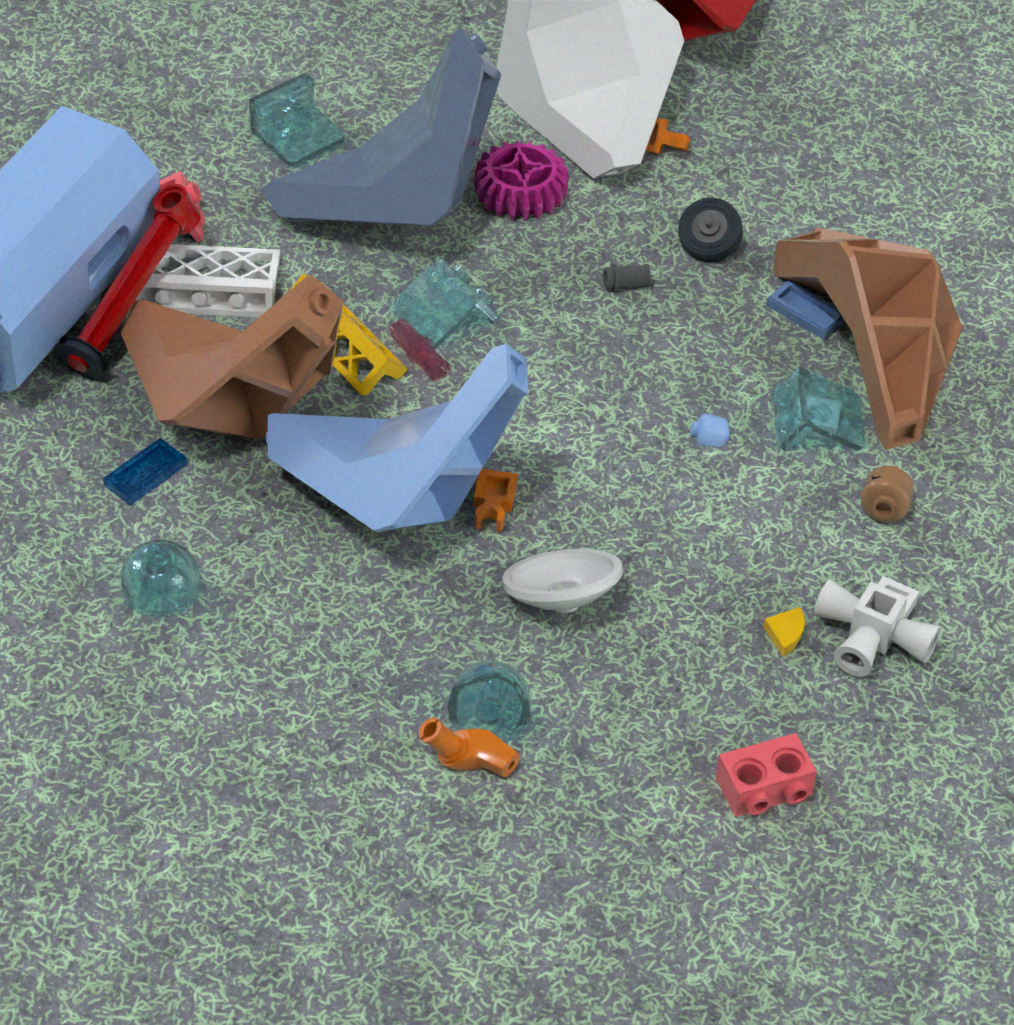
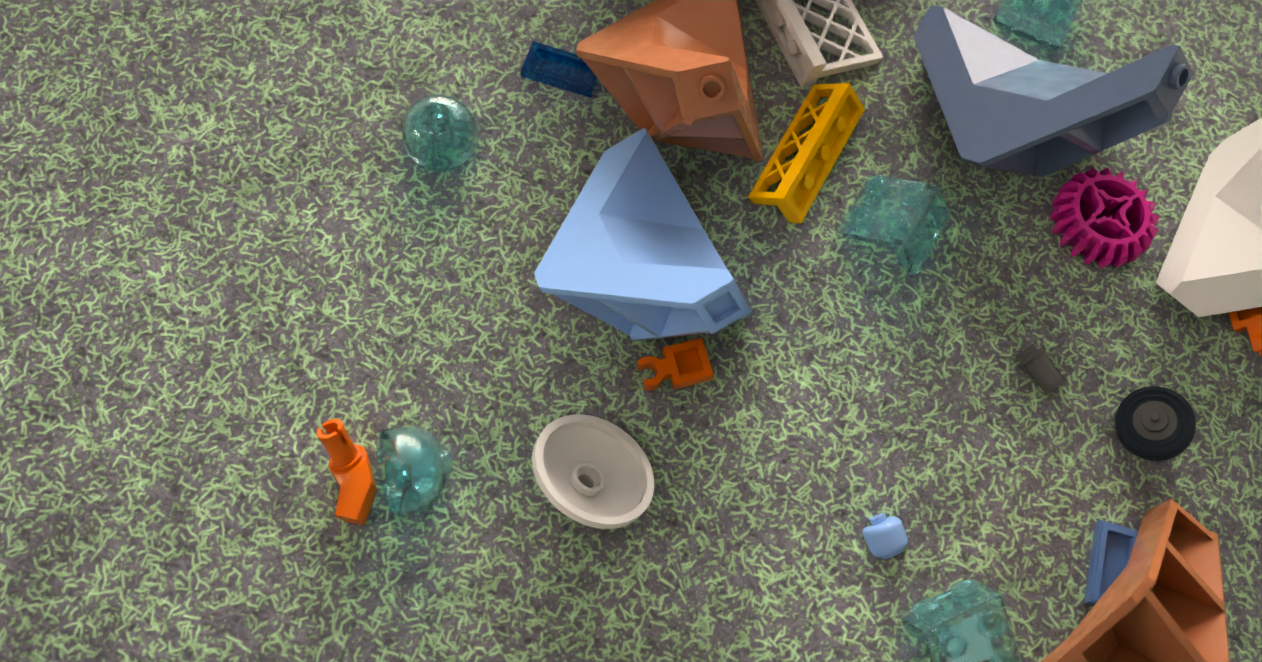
camera: 60 degrees right, 20 degrees up
(419, 349) = (828, 222): clear pink axle -> none

